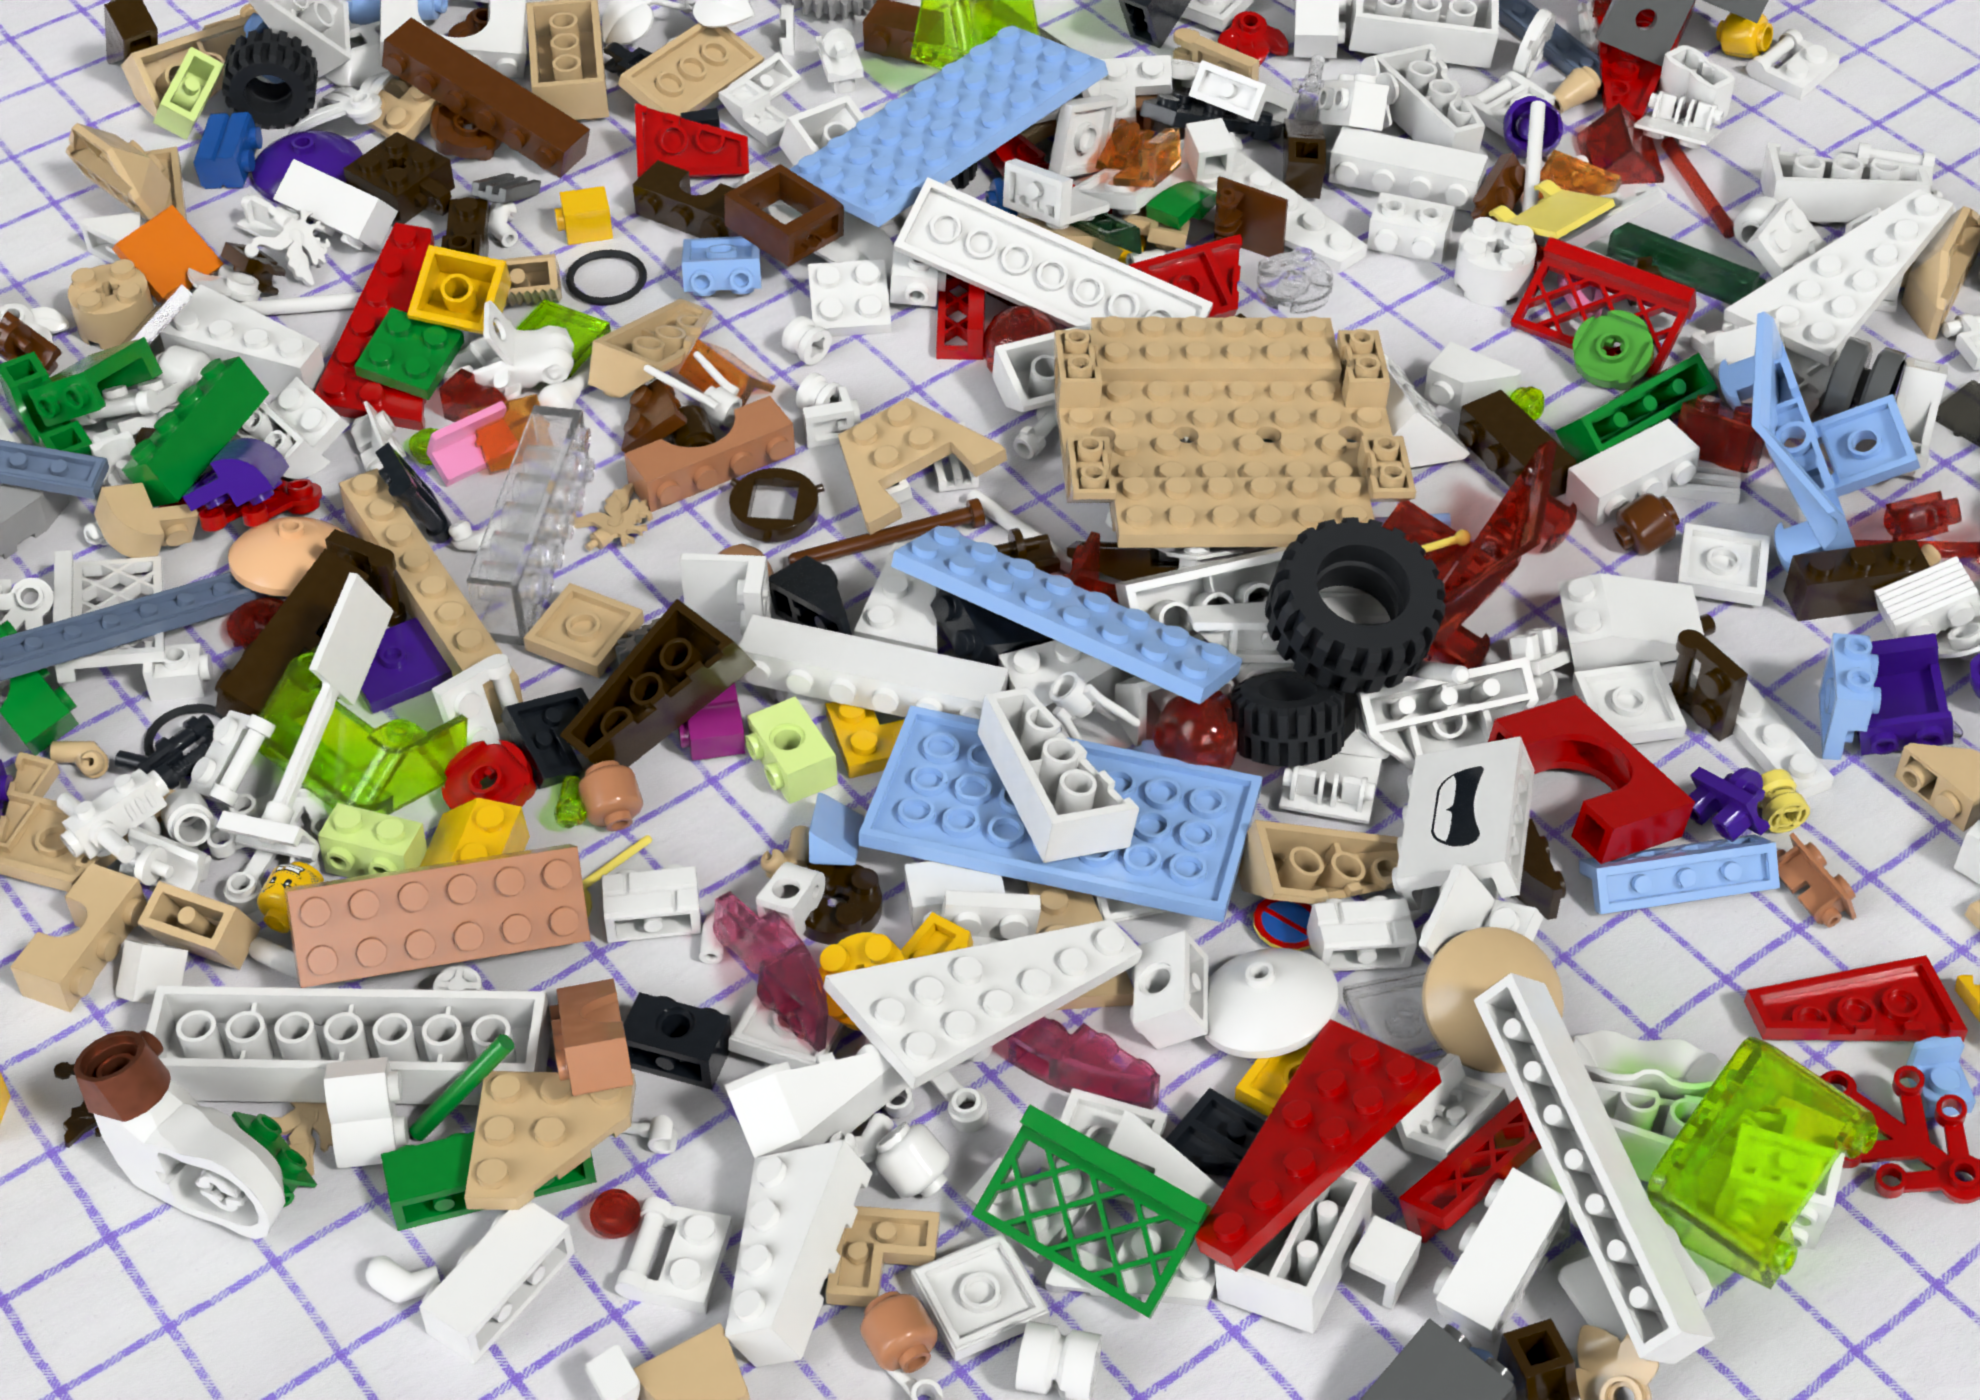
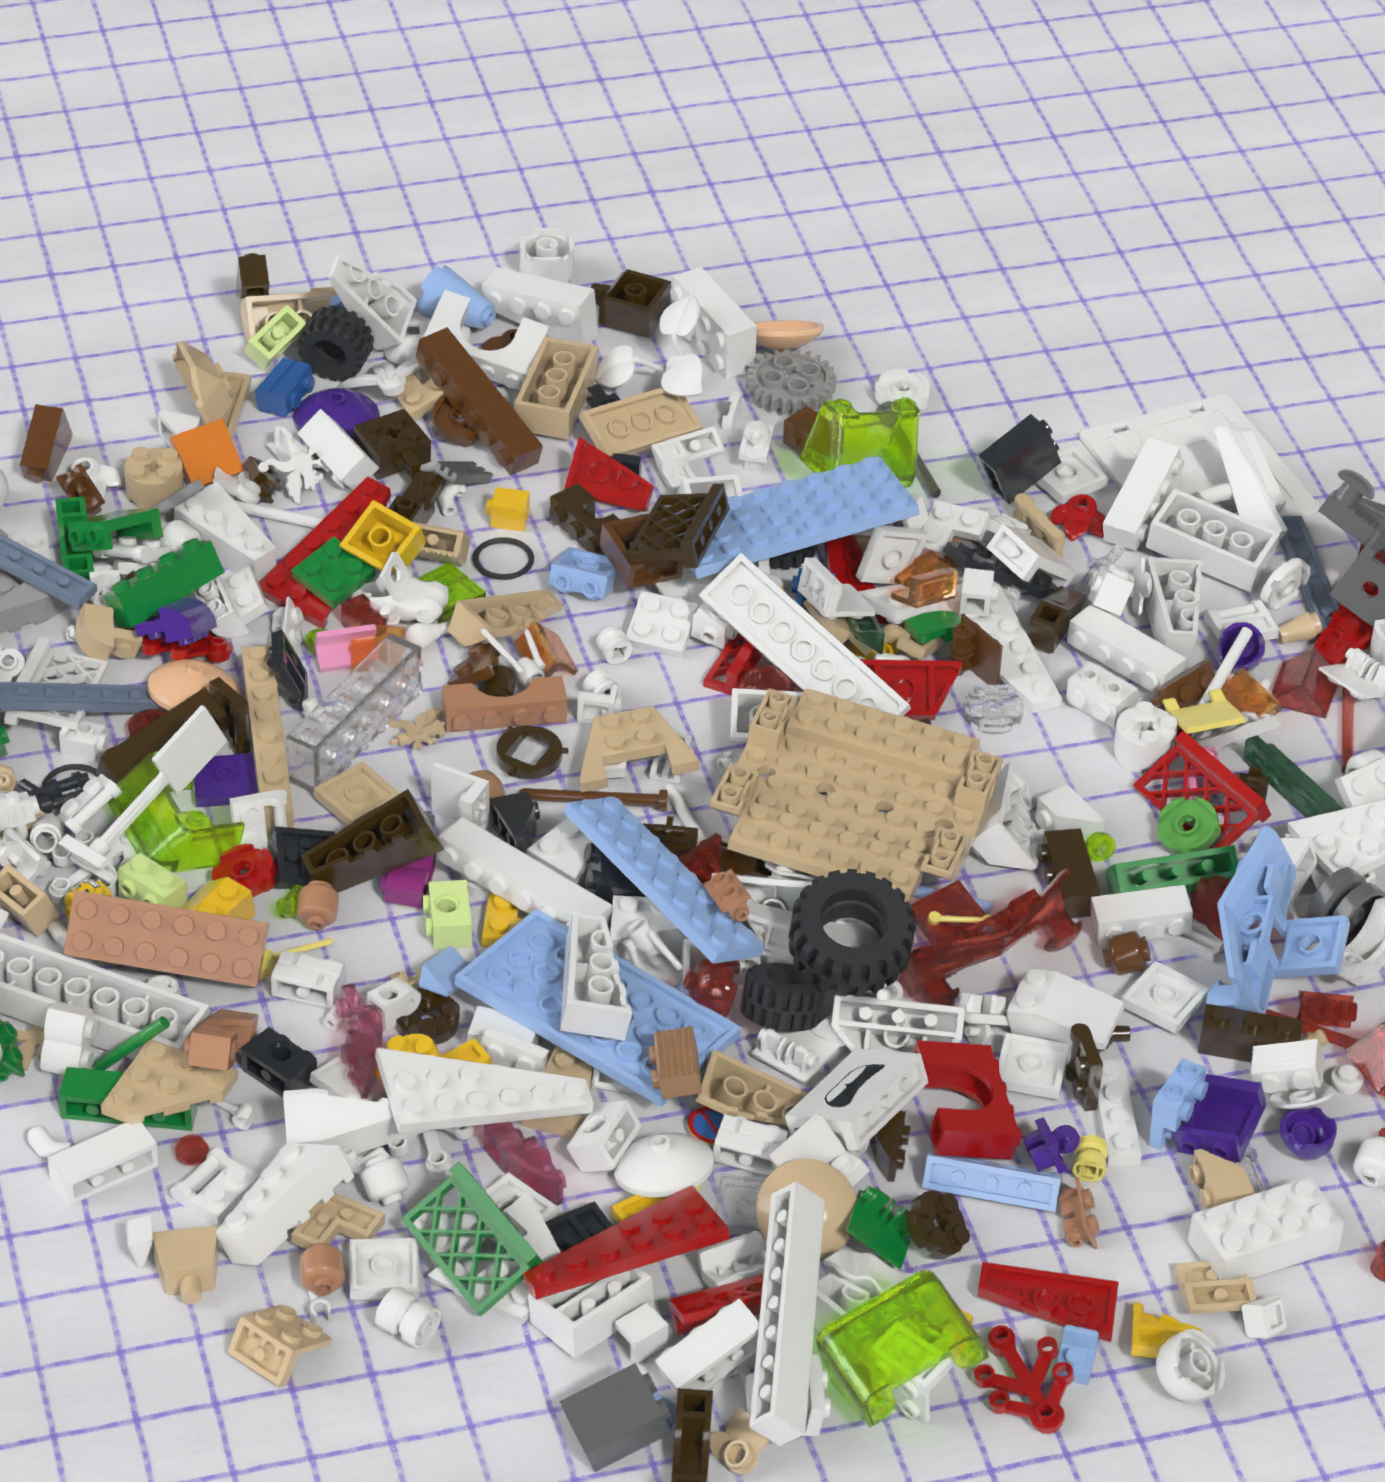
camera: 20 degrees right, 5 degrees down
(854, 162) = (699, 530): none -> dark brown fence
(1171, 605) = (729, 894): none -> nougat hinge
(1226, 855) = (676, 1063): none -> medium nougat brick
(1600, 984) = (878, 1226): none -> green hinge
(1664, 959) = (952, 1229): none -> dark brown plate

